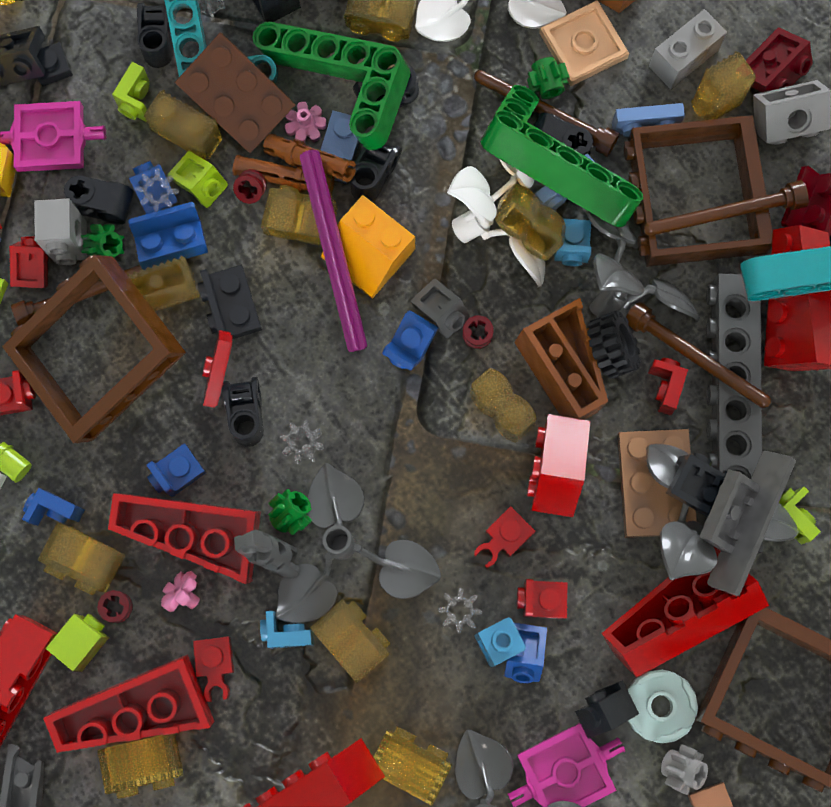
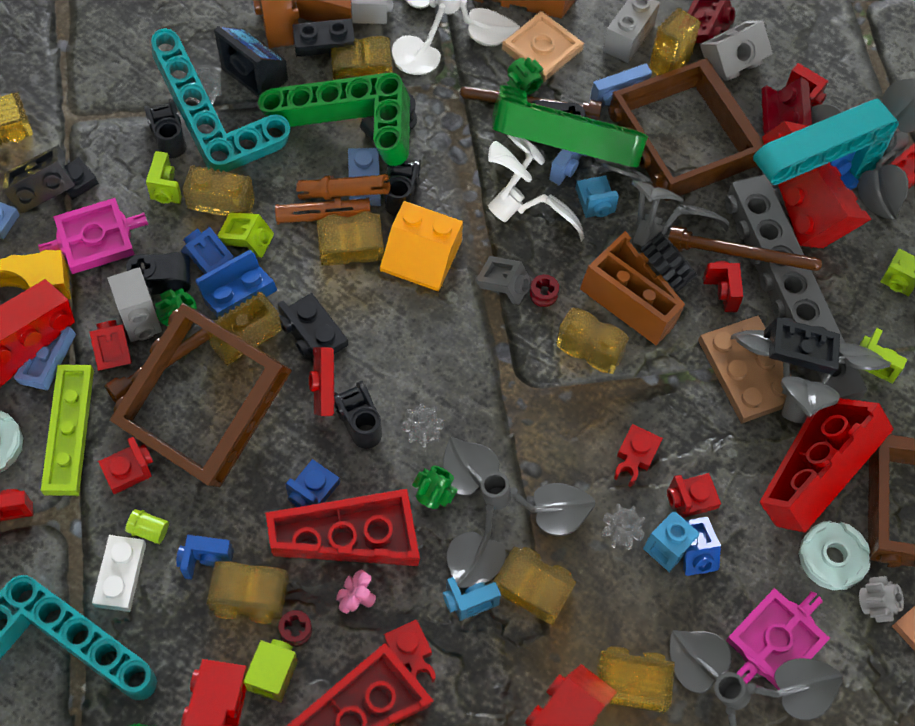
camera: 25 degrees left, 15 degrees down
(163, 196) = (219, 238): clear gear -> none
(235, 92) = (261, 149): reddish brown plate -> none
(244, 193) = (292, 235): dark red bush -> none
(268, 552) = (432, 523): dark grey hinge -> none
(305, 122) = (326, 164): bright pink plant -> none
(333, 250) = (394, 255): magenta axle -> none
(410, 341) = (489, 311): blue bracket -> none
(526, 219) = (564, 184): clear yellow brick -> none
(561, 468) = (665, 371): brick -> none
(606, 709) = (791, 568): black brick -> none
(742, 518) = (845, 354): flat silver bracket -> none
(792, 196) = (765, 108): reddish brown piece -> none

